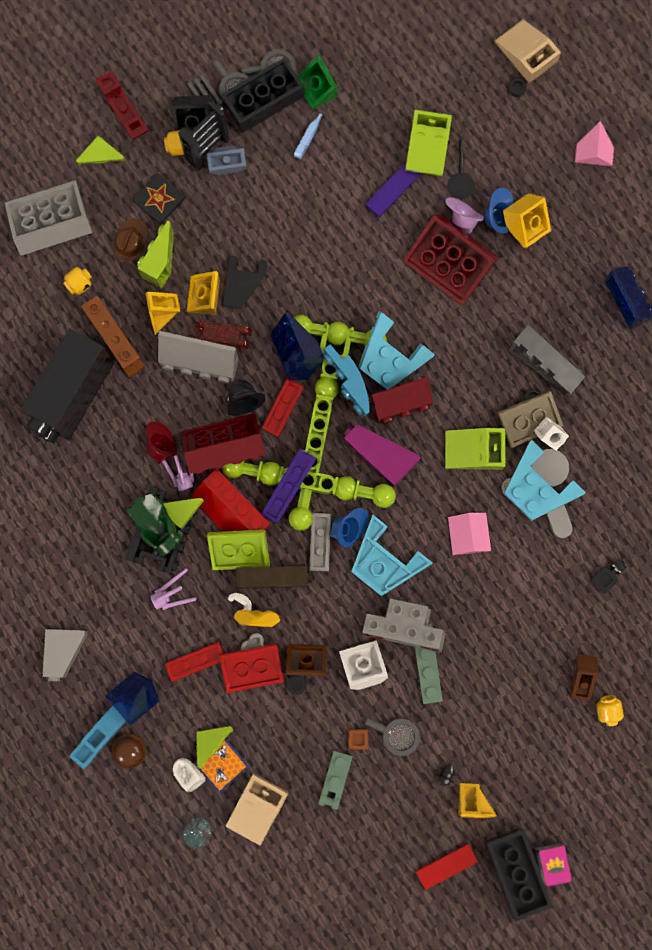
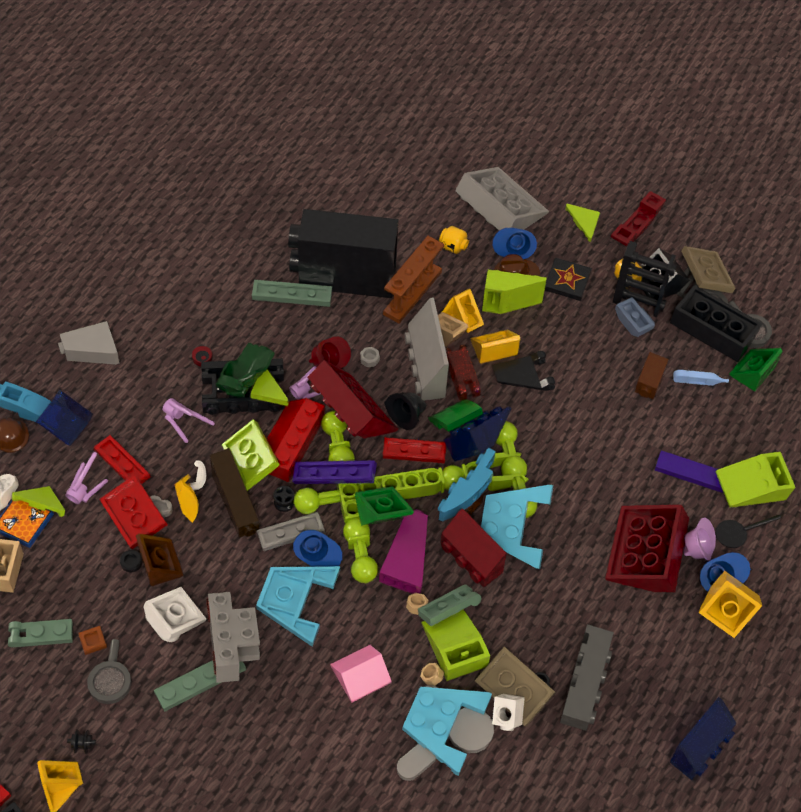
camera: 65 degrees right, 25 degrees down
(75, 450) = (292, 293): none -> sand green plate
(106, 228) = (514, 241): none -> blue piece
(111, 555) = (201, 354): none -> dark red tile
(173, 408) = (369, 357): none -> light grey tile
(177, 324) = (451, 328): none -> tan slope
(204, 73) = (708, 269): none -> dark tan tile
(212, 709) = (77, 490): none -> lavender plant
(266, 359) = (456, 415): none -> green slope
(288, 533) = (283, 493): none -> black wheel
(296, 177) = (651, 375): none -> reddish brown slope
(341, 459) = (381, 506): none -> green slope
(428, 465) = (416, 601): none -> tan tile
(442, 440) = (449, 604): none -> sand green plate
(494, 478) = (432, 674): none -> tan tile

